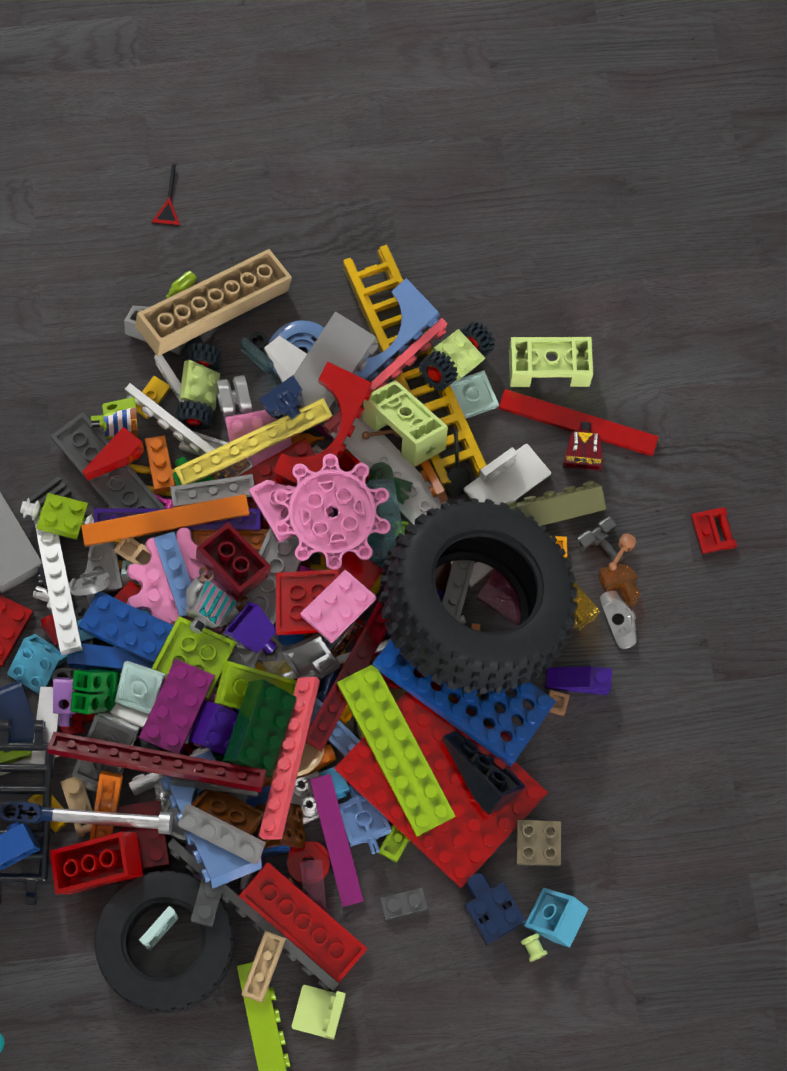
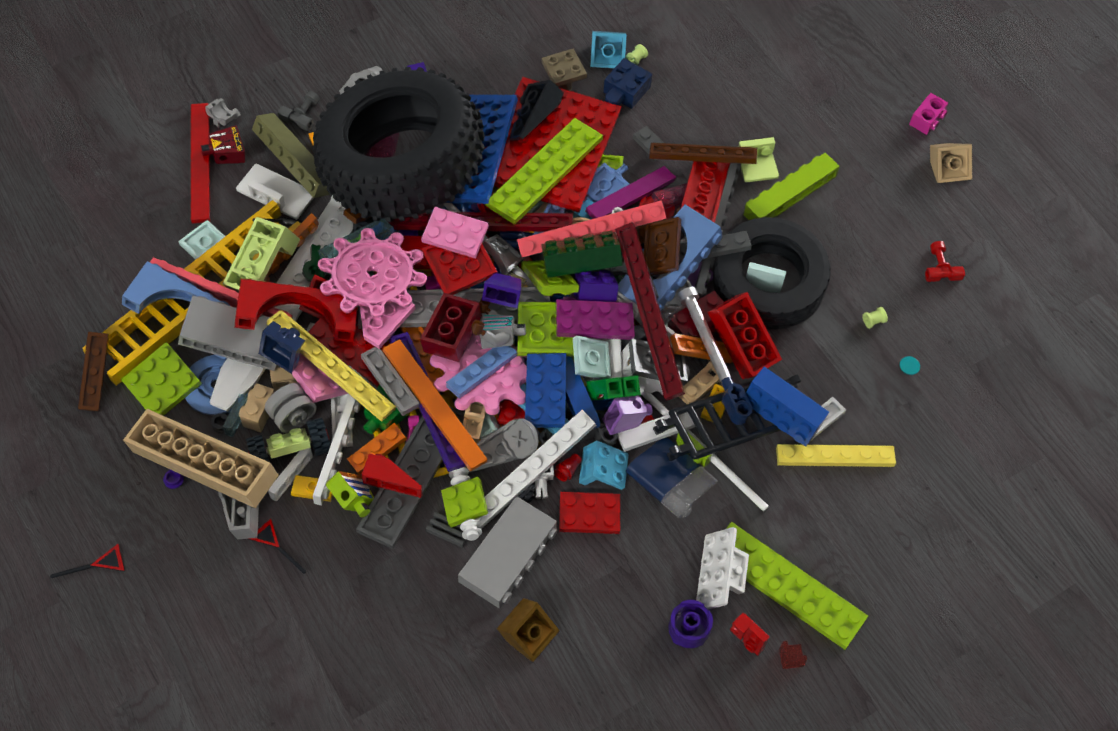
camera: 115 degrees left, 10 degrees down
(61, 1033) = (875, 317): none -> yellowish green bush
(123, 344) = (267, 536): none -> black piece
(182, 283) = (184, 511): lime piece -> none
(222, 834) = (682, 234): light grey plate -> none
(258, 378) = (253, 413): none -> tan brick
(263, 966) = (751, 198): tan tile -> none
(320, 299) = (161, 380): none -> lime plate
(349, 945) = (703, 153): none -> reddish brown tile
(358, 248) = (93, 371): none -> reddish brown plate
(457, 356) = (179, 248): plate -> none
(529, 360) = (158, 201): yellowish green plate -> none
(621, 578) = (329, 87): clear orange brick -> none
(626, 544) = (296, 95): nougat hinge -> none
(631, 461) = (220, 113): none -> light grey piece
(707, 532) = (259, 48): red plate -> none

